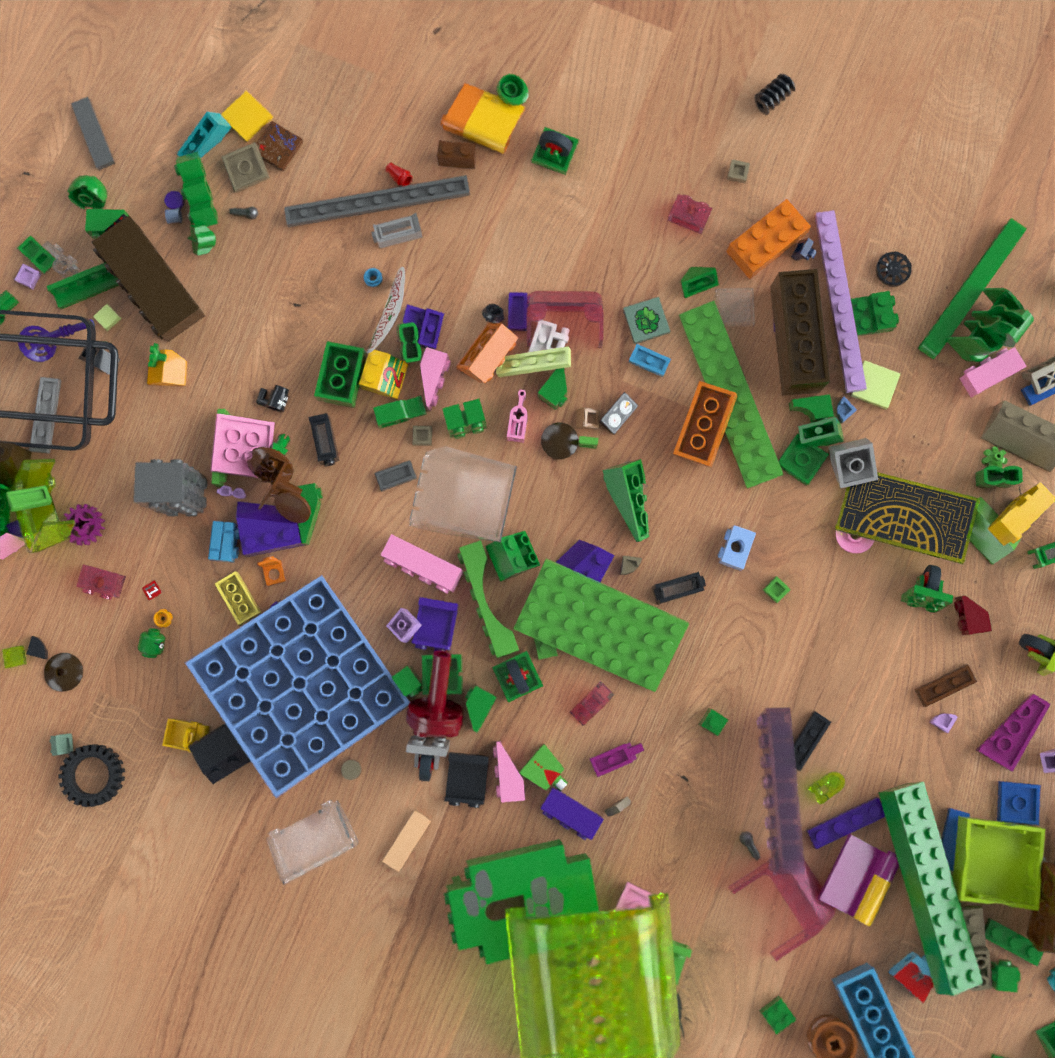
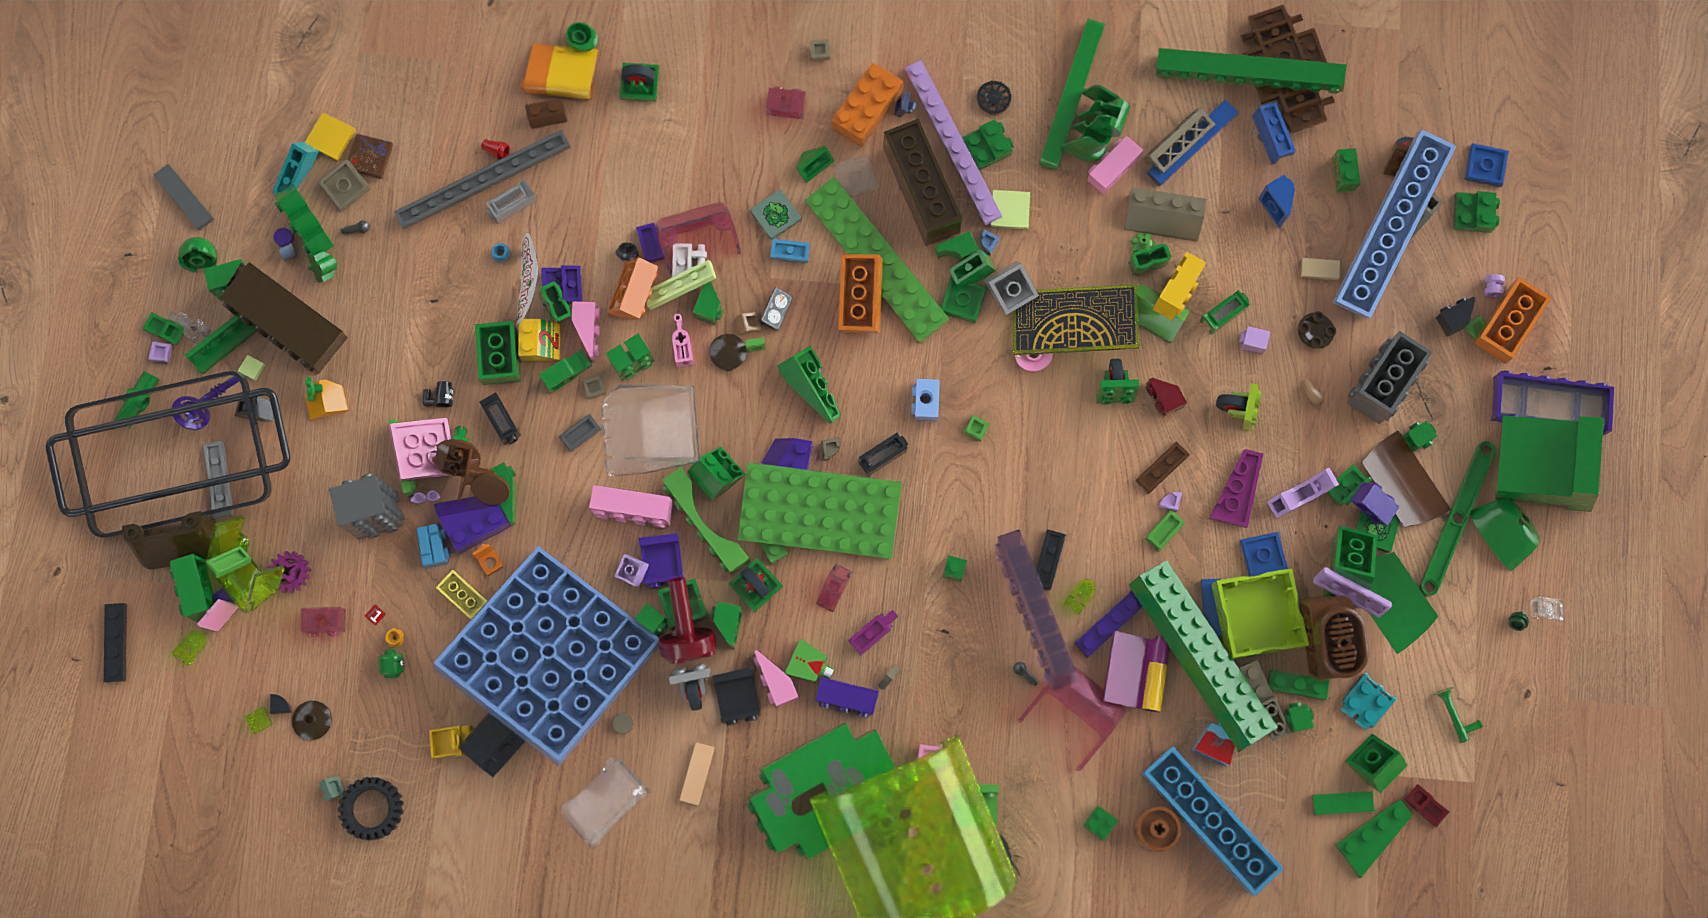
camera: 20 degrees left, 5 degrees down
(929, 748) = (1165, 530): none -> bright green tile

